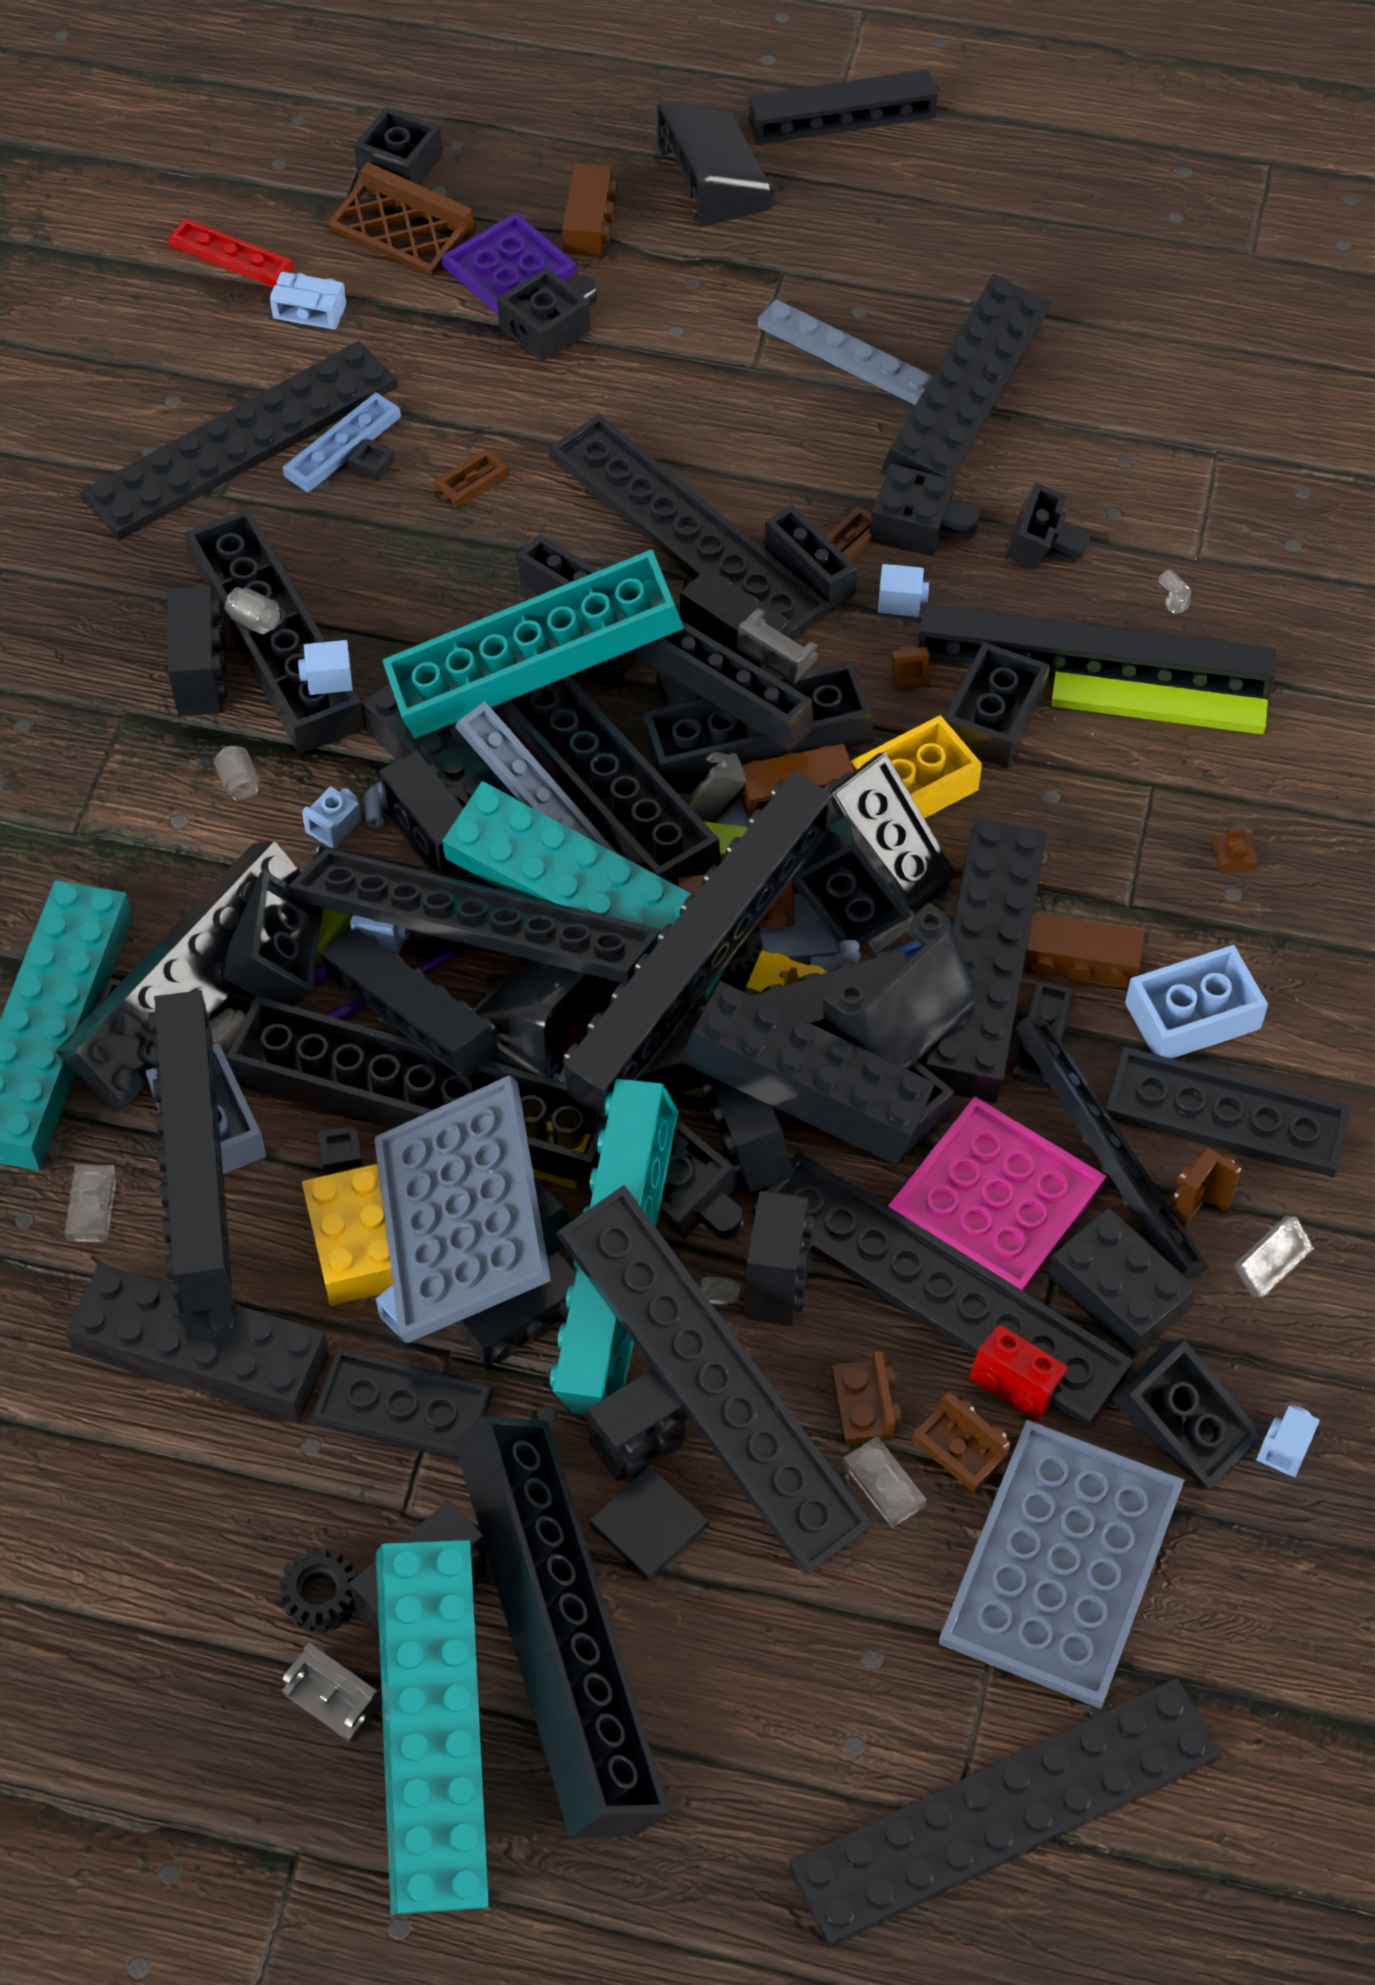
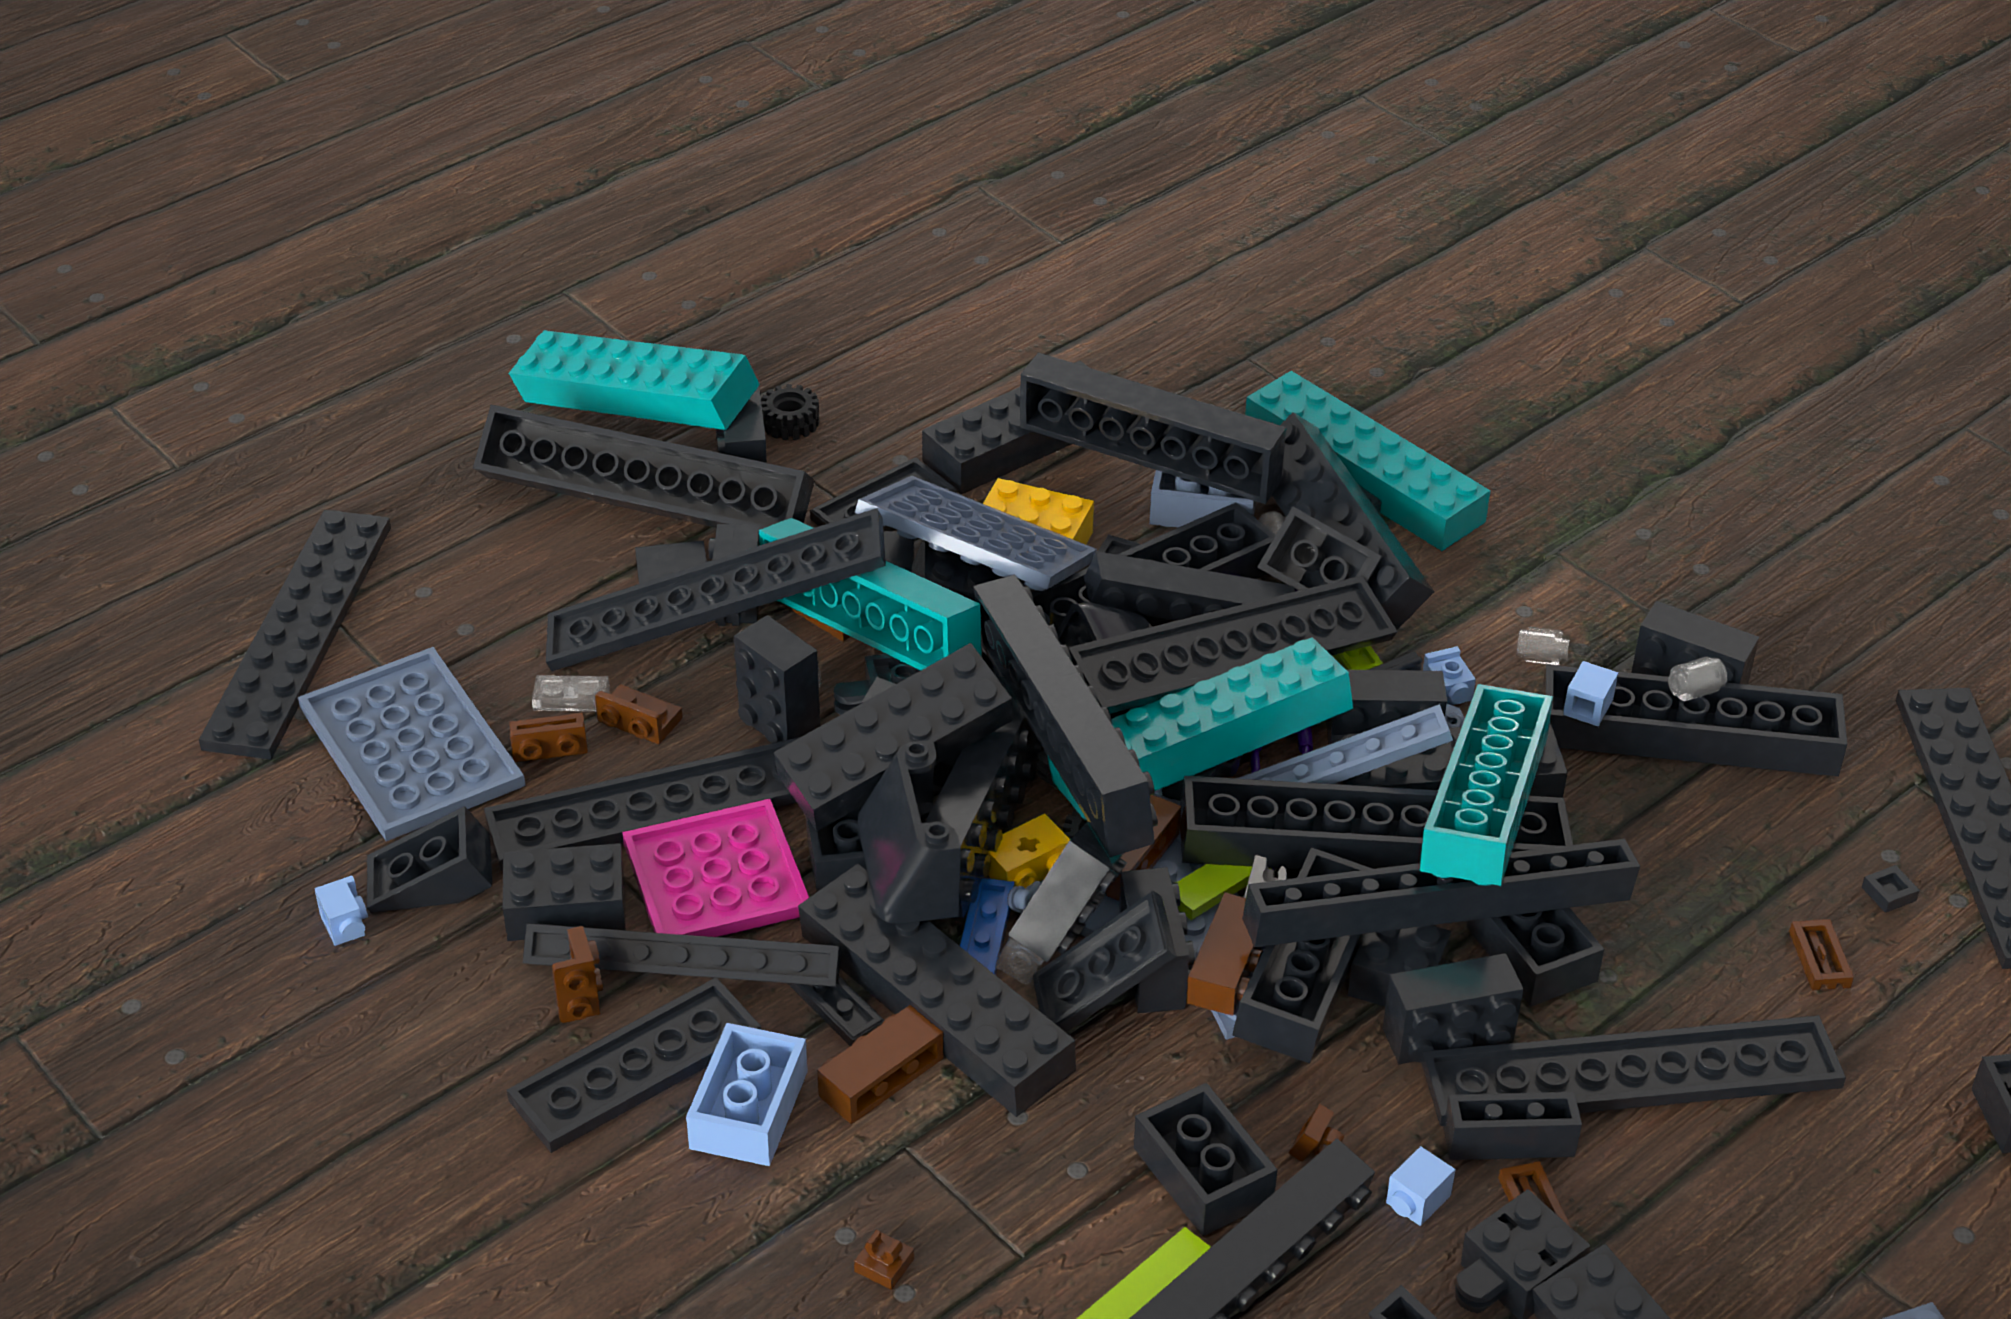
camera: 125 degrees right, 15 degrees down
(340, 442) = (1938, 888): medium blue plate -> none
(774, 648) = (1373, 968): flat silver hinge -> none
(931, 765) = (1168, 1043): yellow brick -> none
(1017, 1372) = (561, 783): red bracket -> none
(1273, 1256) = (484, 1002): clear plate -> none

